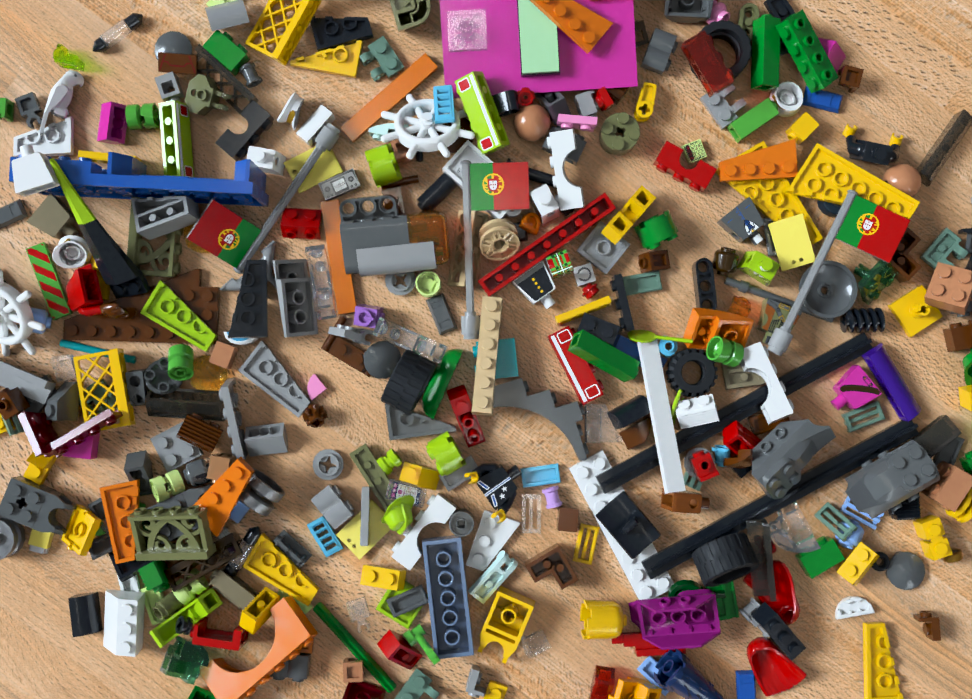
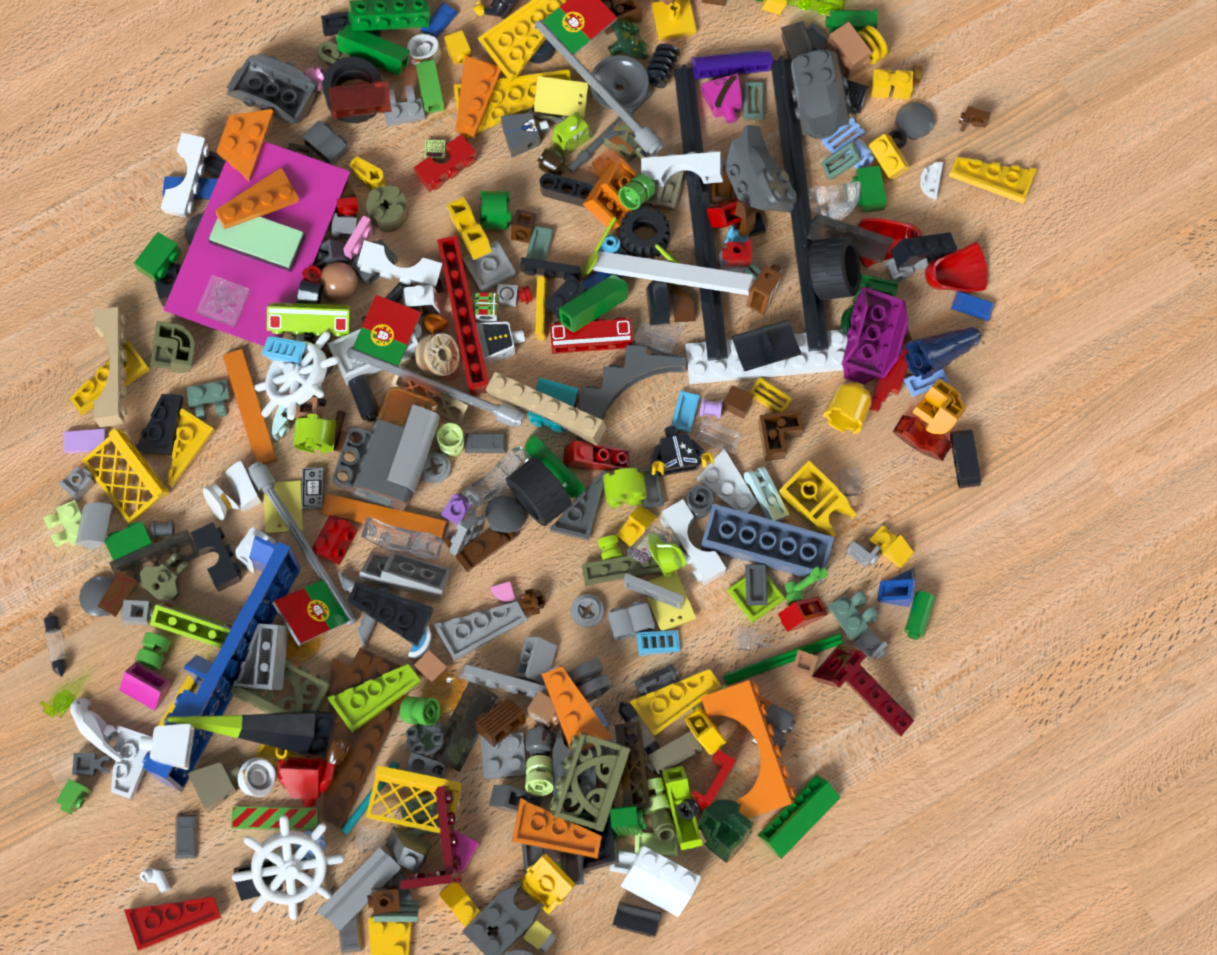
camera: 65 degrees left, 15 degrees down
(383, 577) = (722, 597): yellow brick -> none
(697, 411) = (683, 240): white brick -> none

